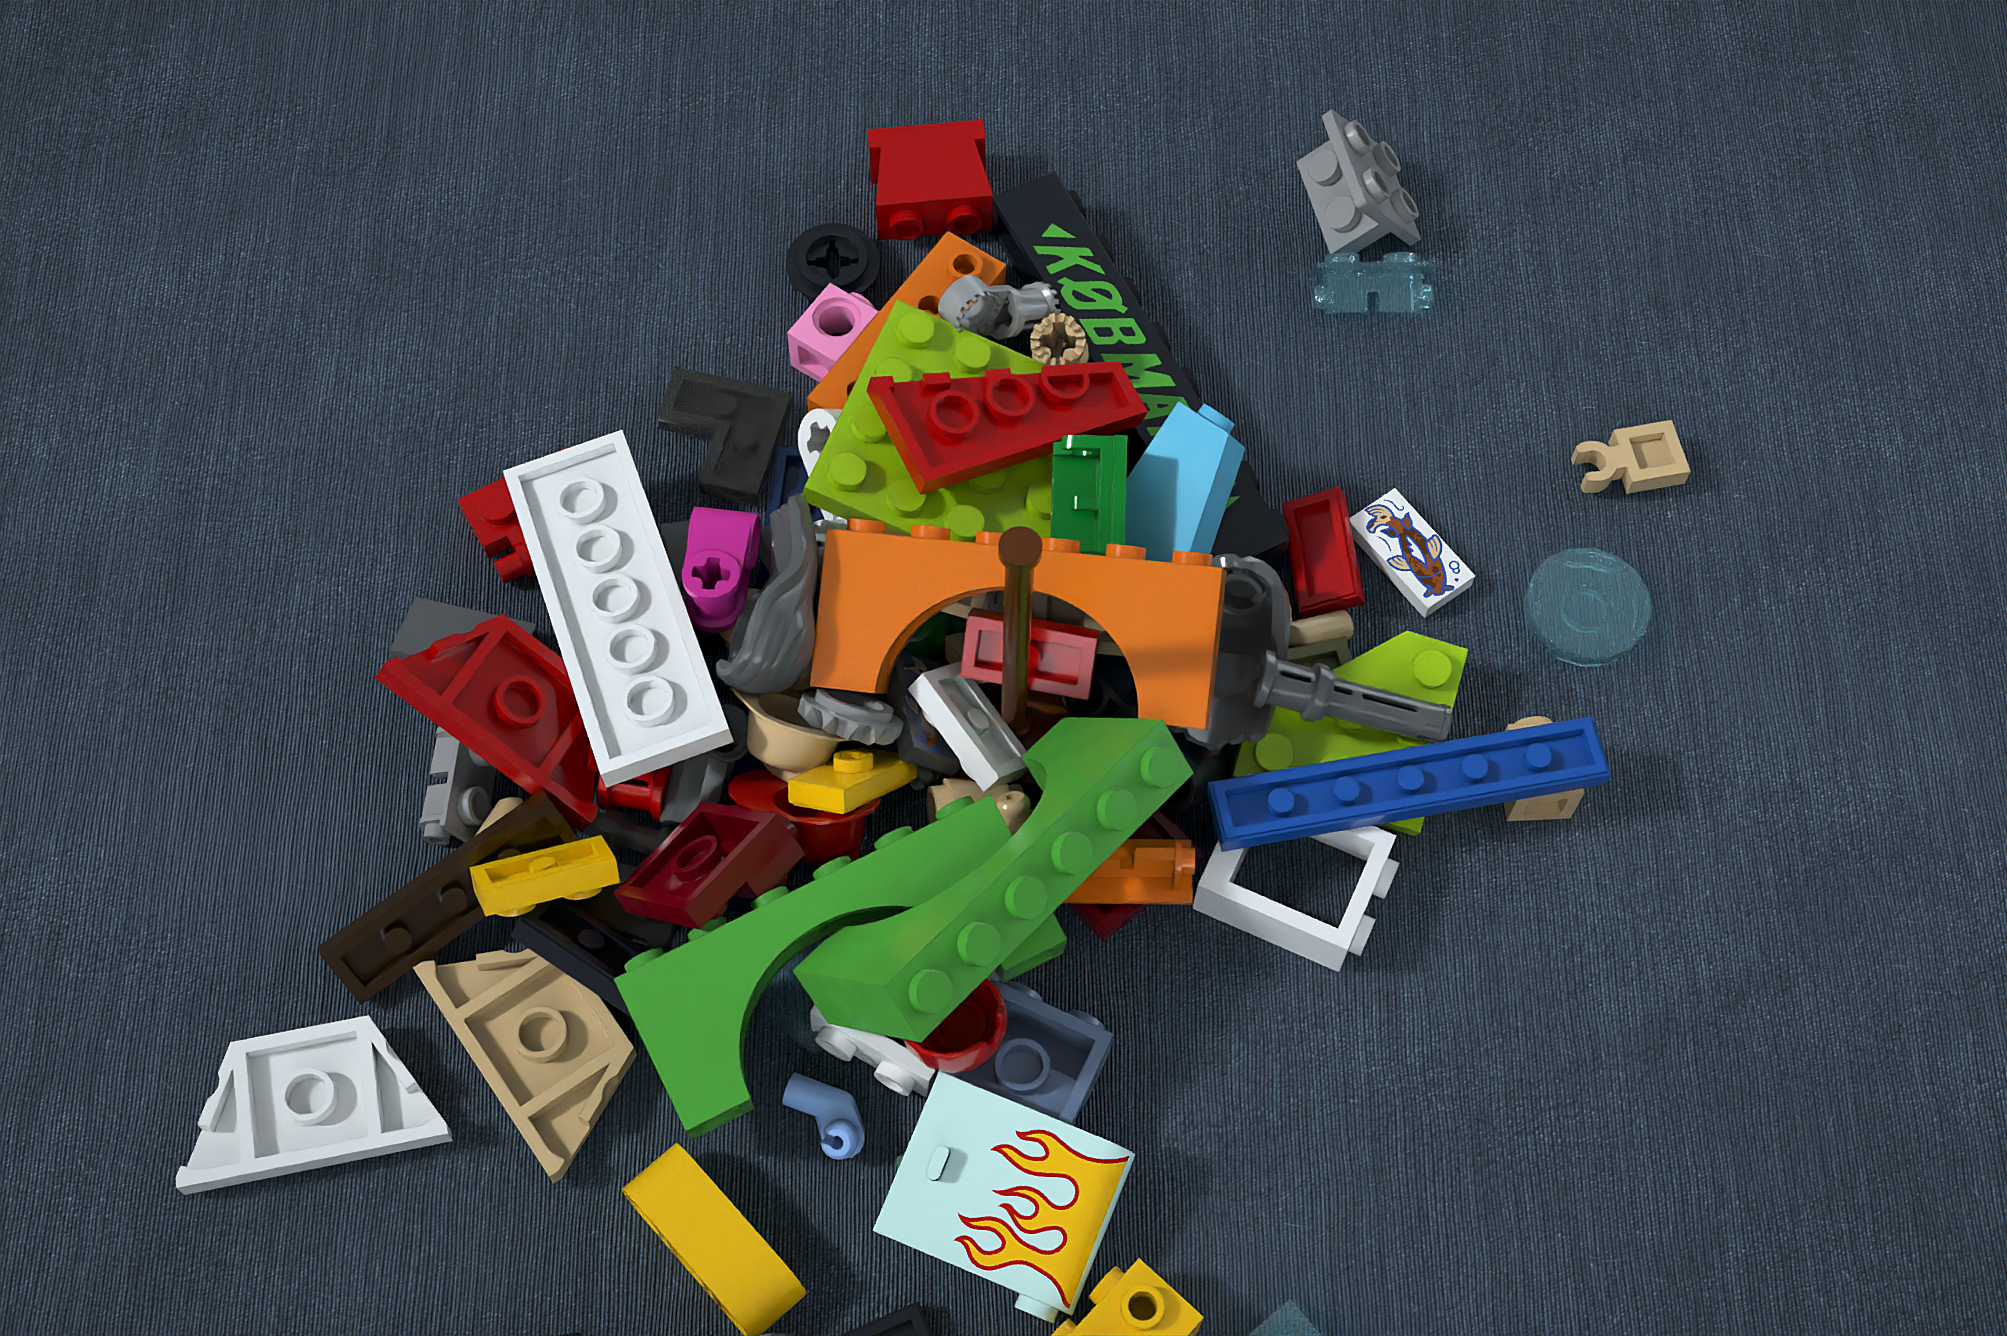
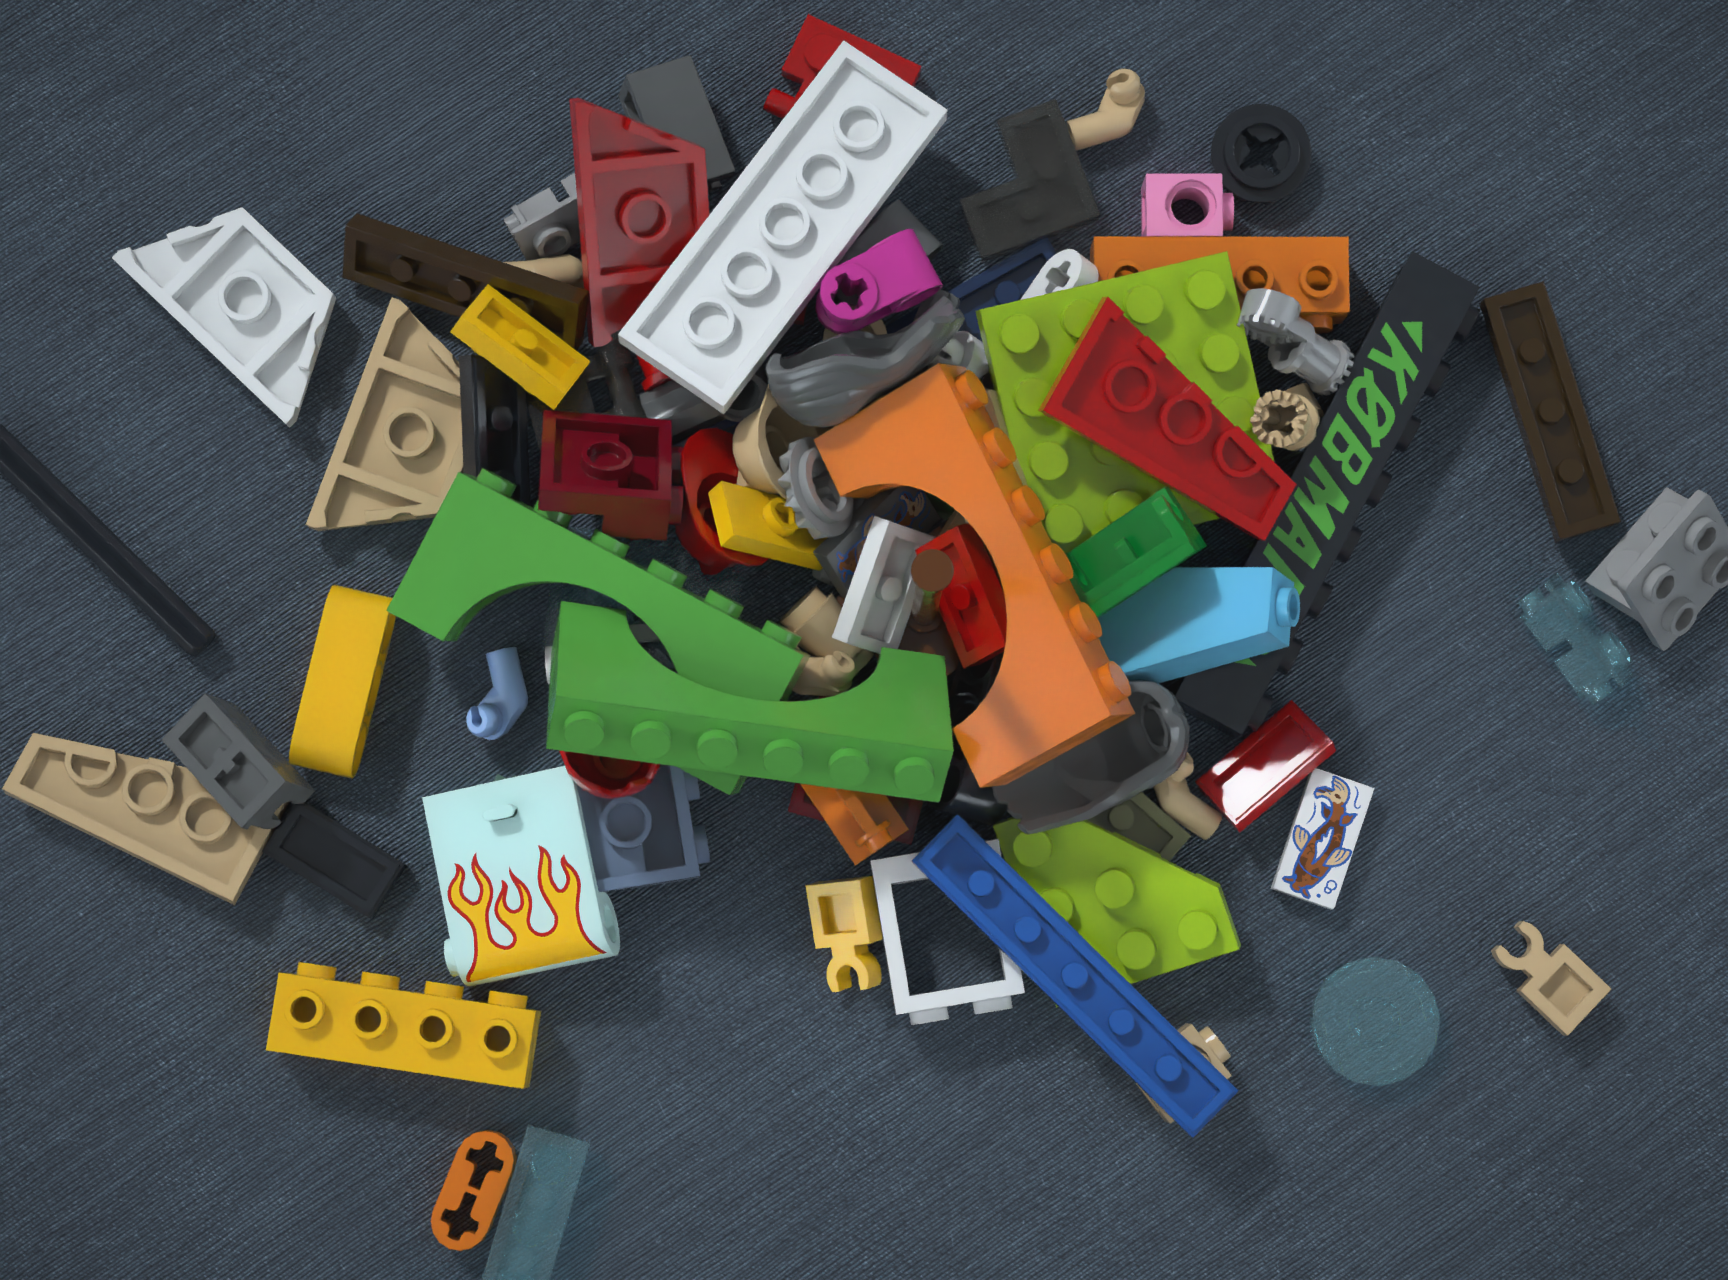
camera: 55 degrees right, 20 degrees up
(717, 337) = (1115, 114): none -> tan arm
(930, 179) = (1403, 178): red hips -> none
(1184, 198) = (1549, 412): none -> dark brown plate
(1231, 950) = (846, 920): none -> yellow plate
(1319, 693) = (1100, 849): dark grey pin -> none

